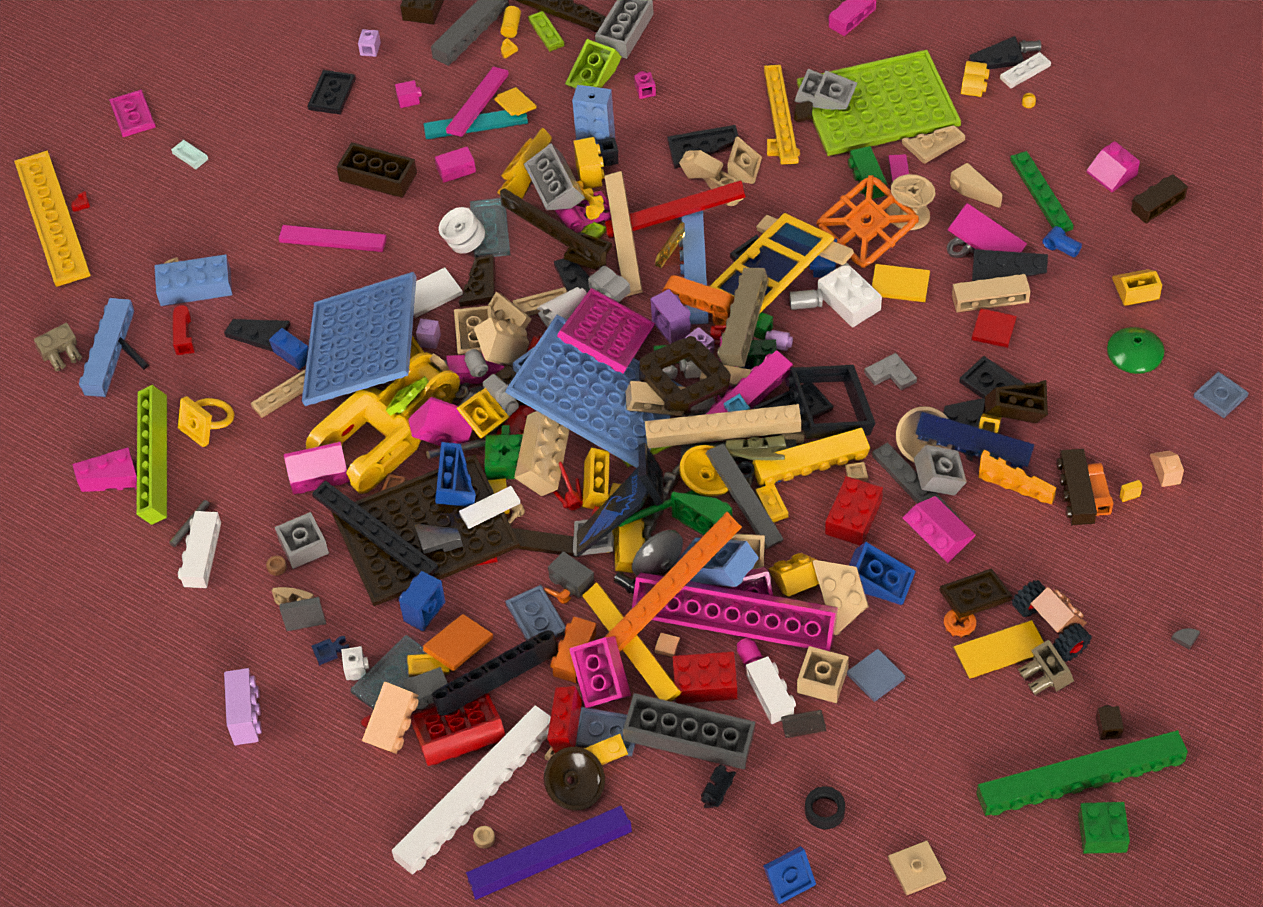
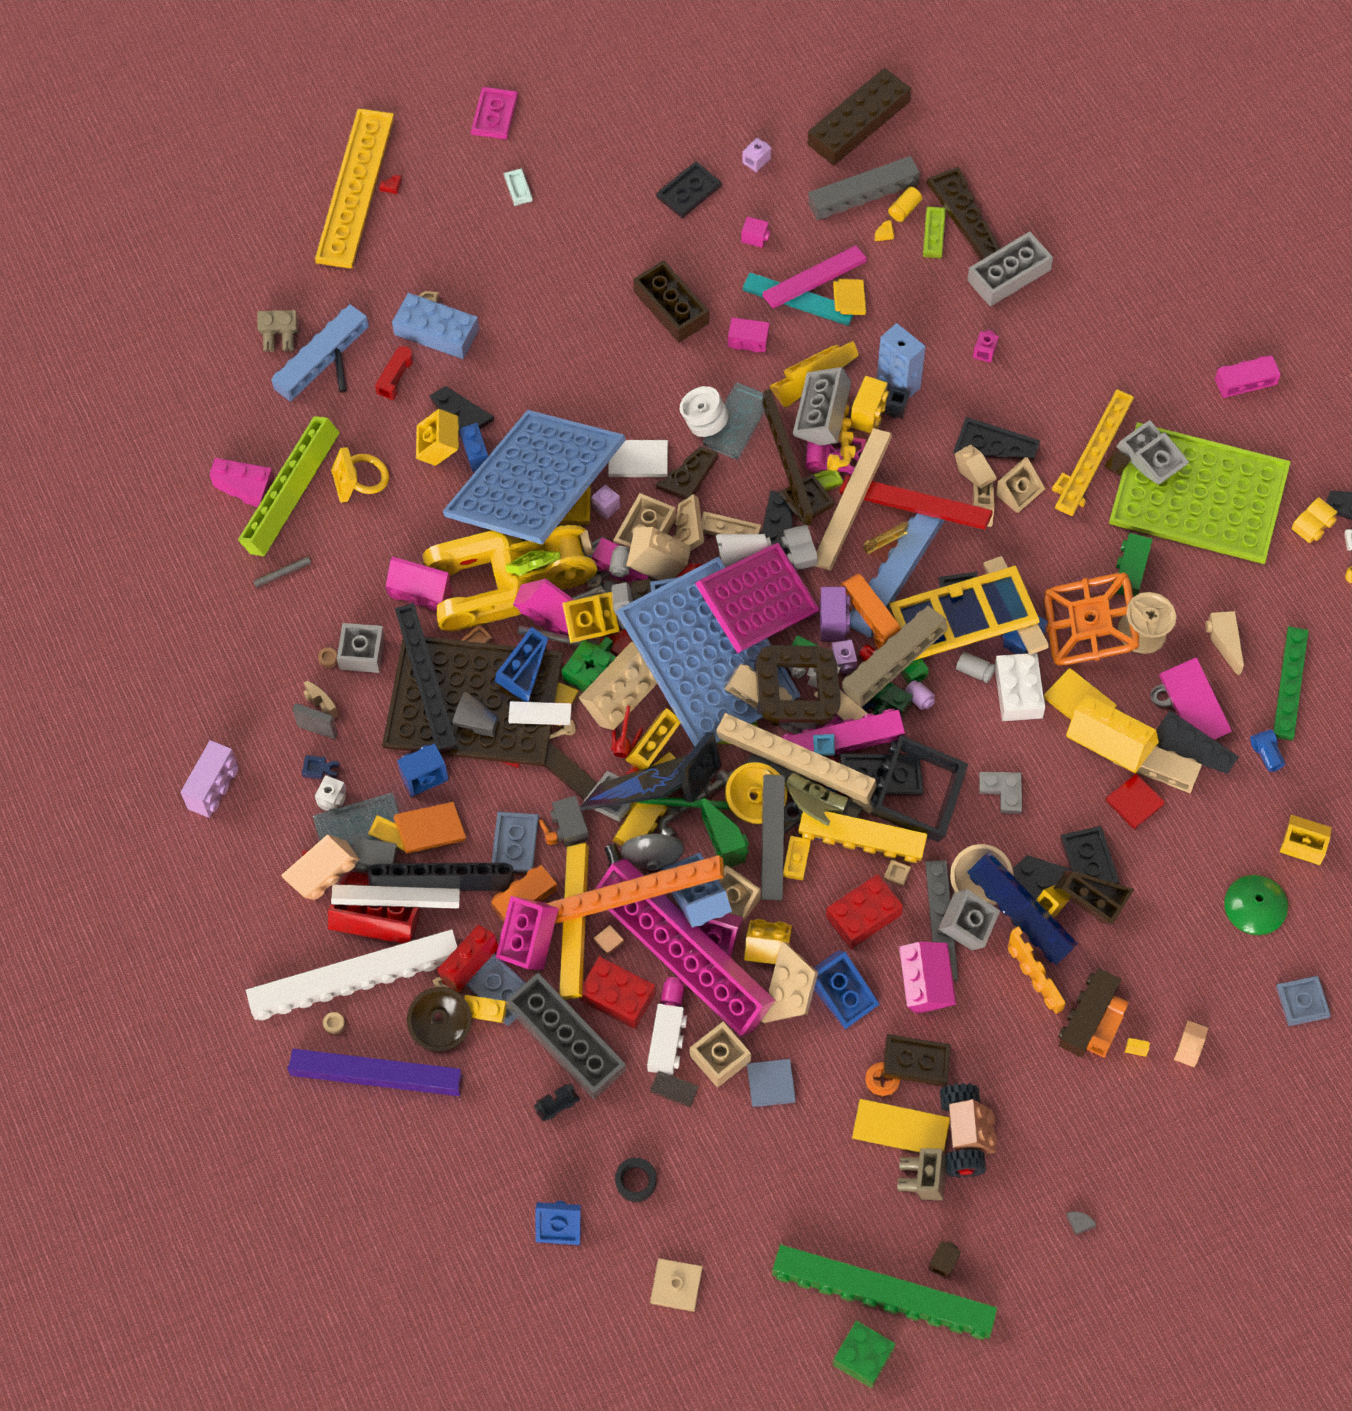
camera: 30 degrees right, 10 degrees up
(200, 549) = (273, 604): white brick -> none
(255, 354) = (437, 437): none -> yellow brick
(280, 395) = (435, 488): tan tile -> none
(332, 238) = (588, 350): dark pink tile -> none
(468, 707) = (395, 896): none -> white tile
(594, 65) = (948, 300): lime slope -> none
(898, 166) = (1167, 578): dark pink tile -> none
(932, 145) = (1221, 570): tan wing -> none
(945, 286) = (1112, 733): none -> yellow slope

